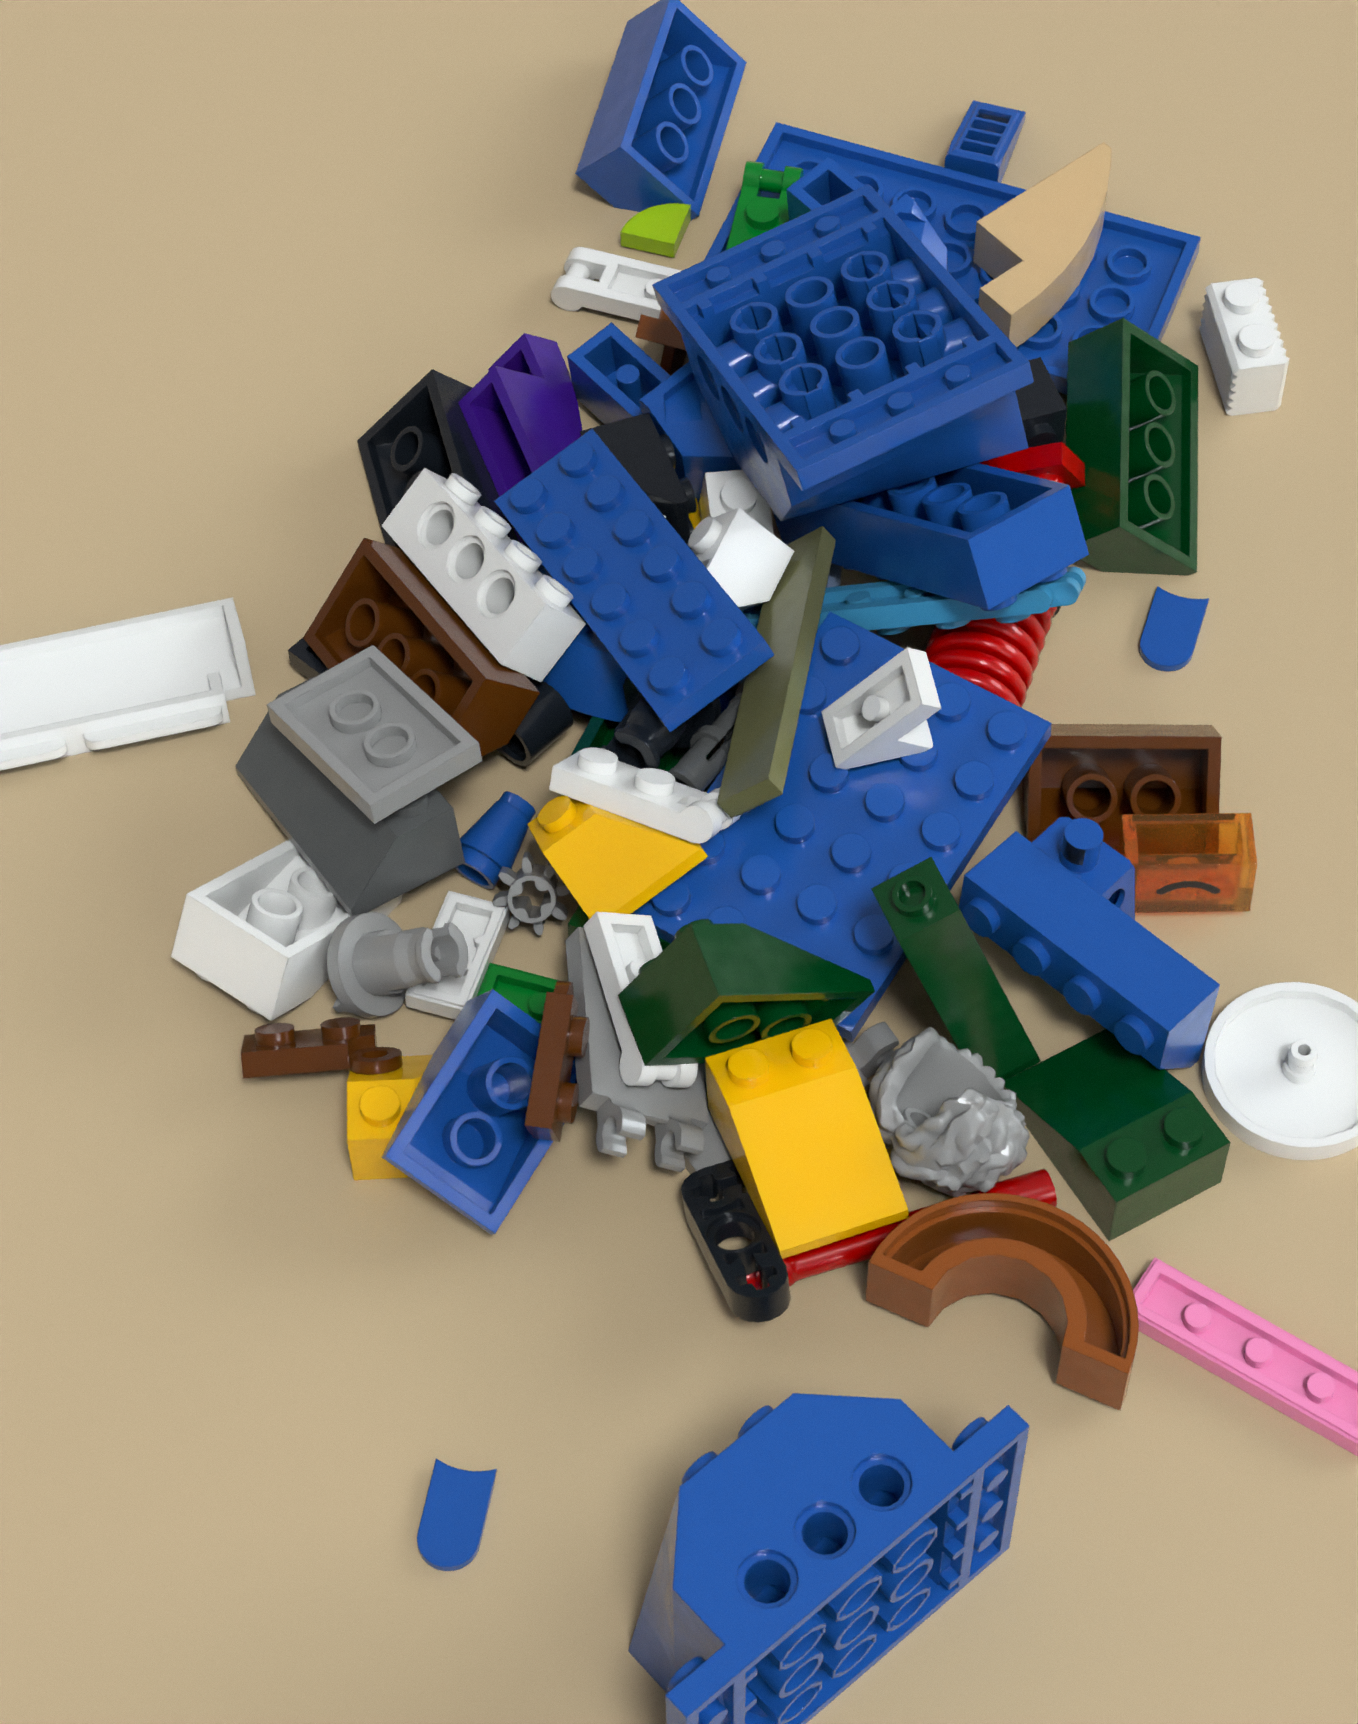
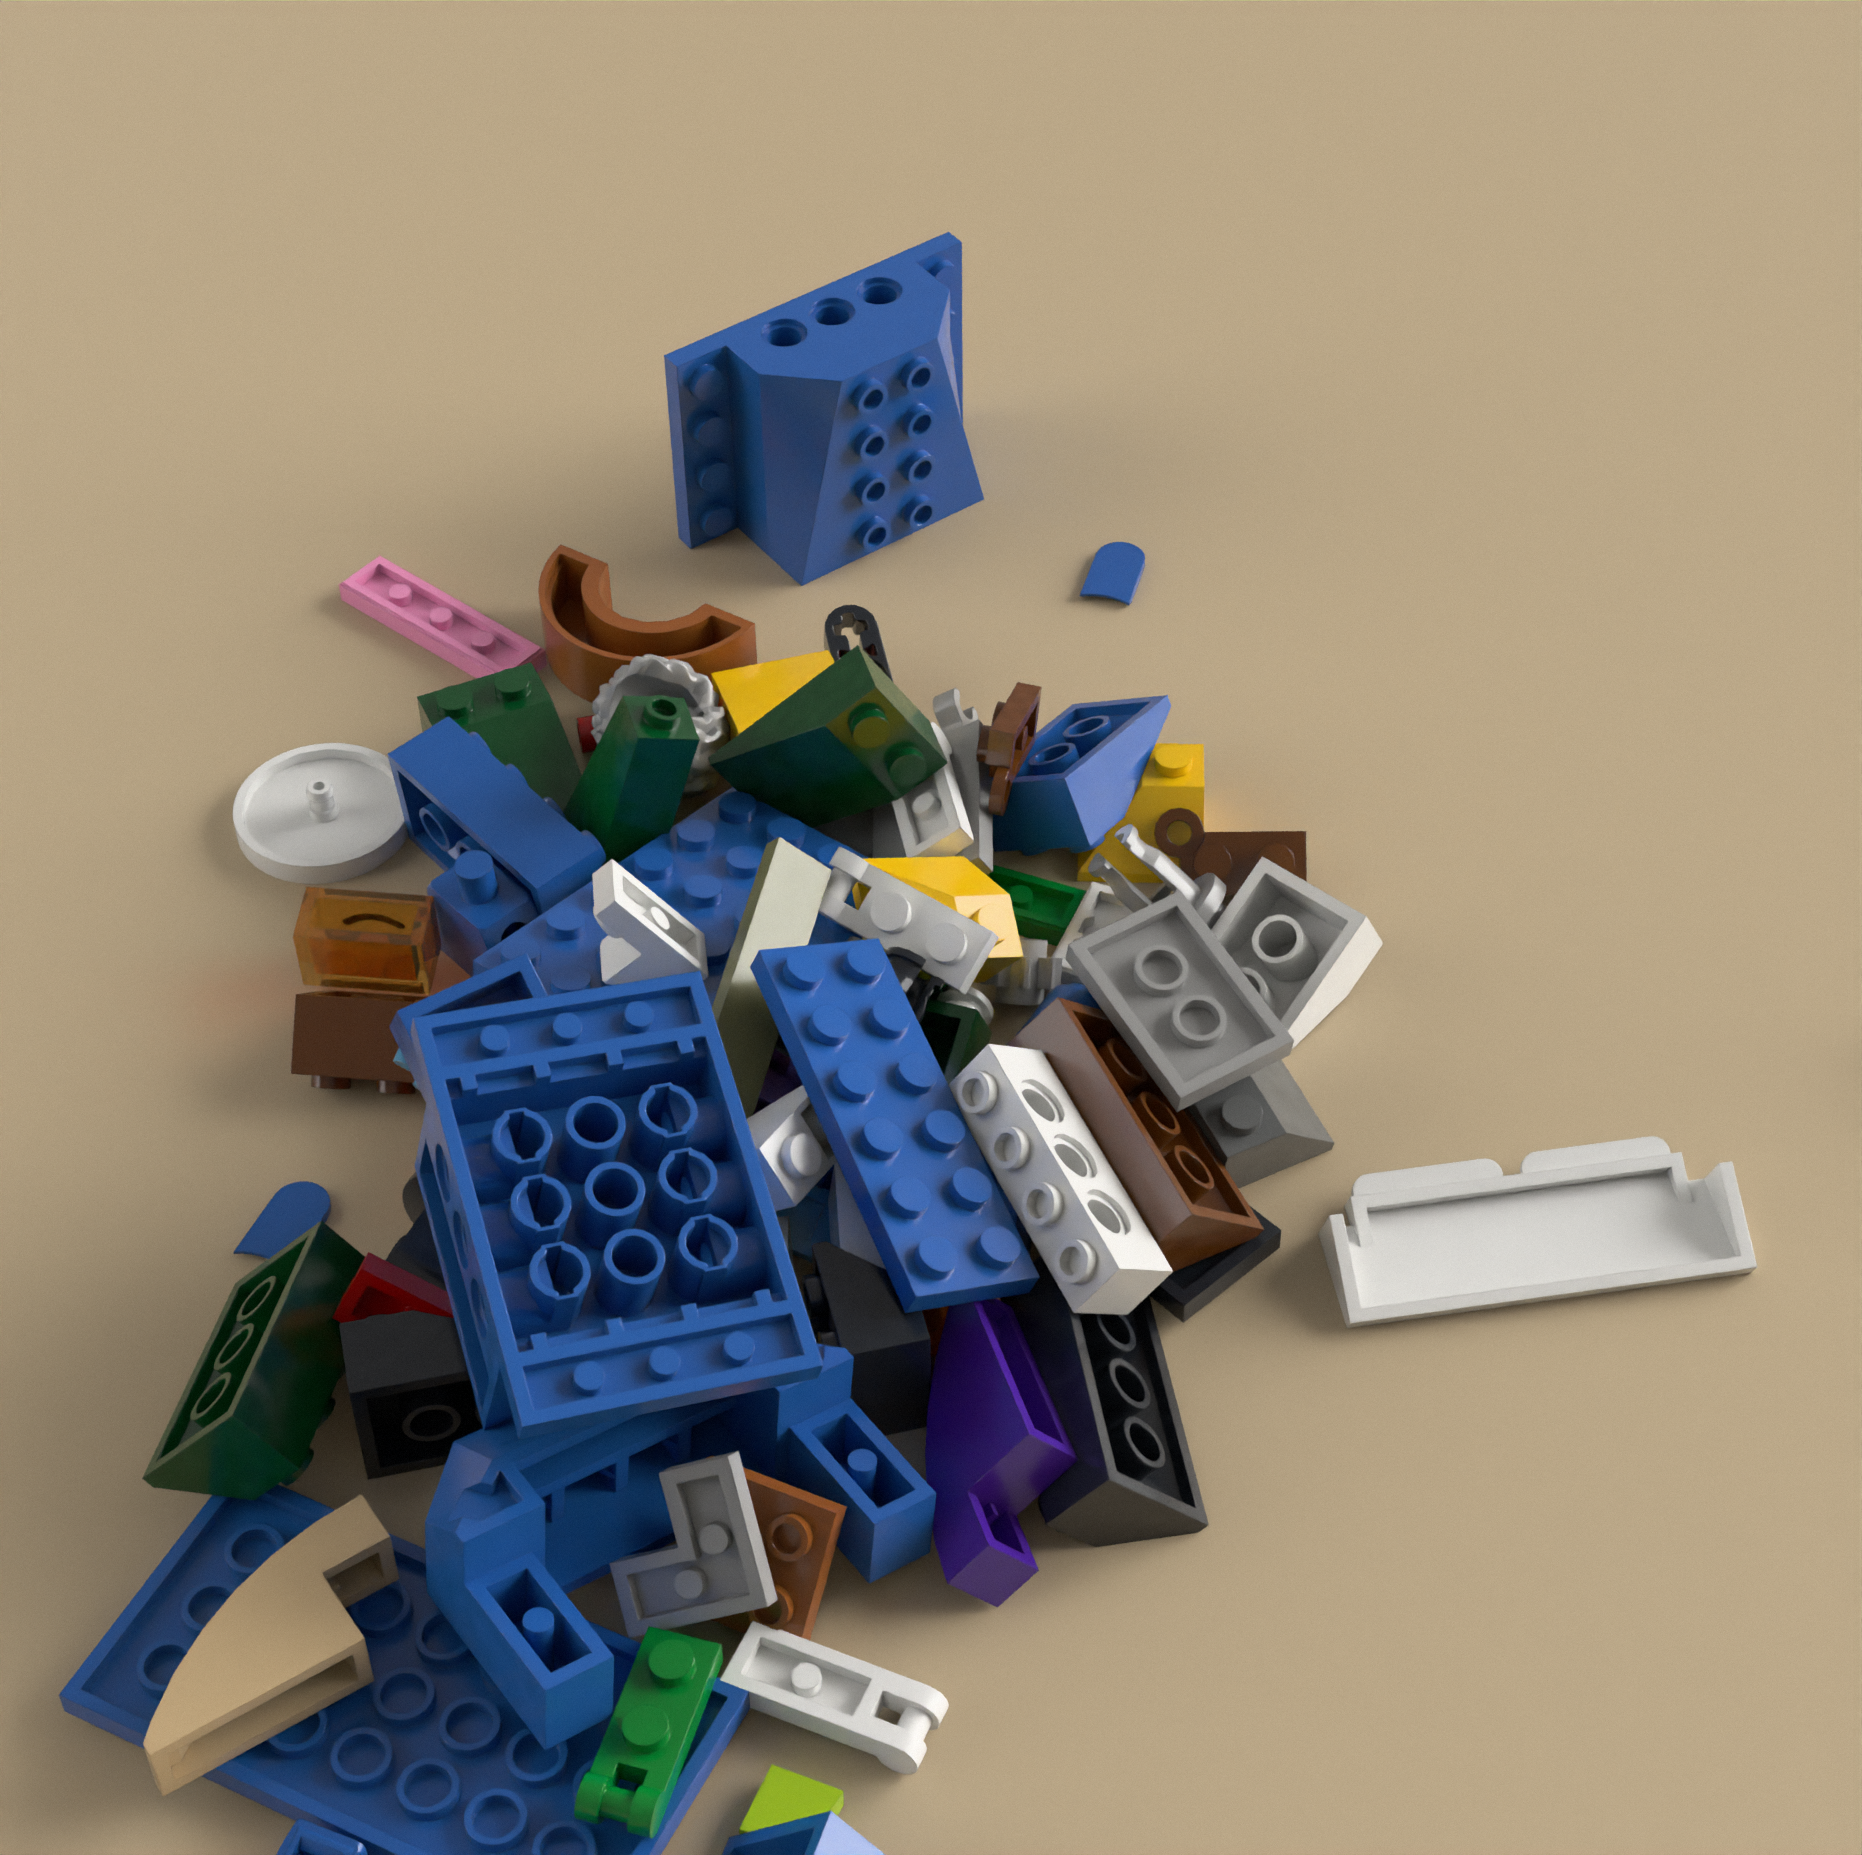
camera: 175 degrees left, 10 degrees down
(1244, 346) = (70, 1525): white brick -> none

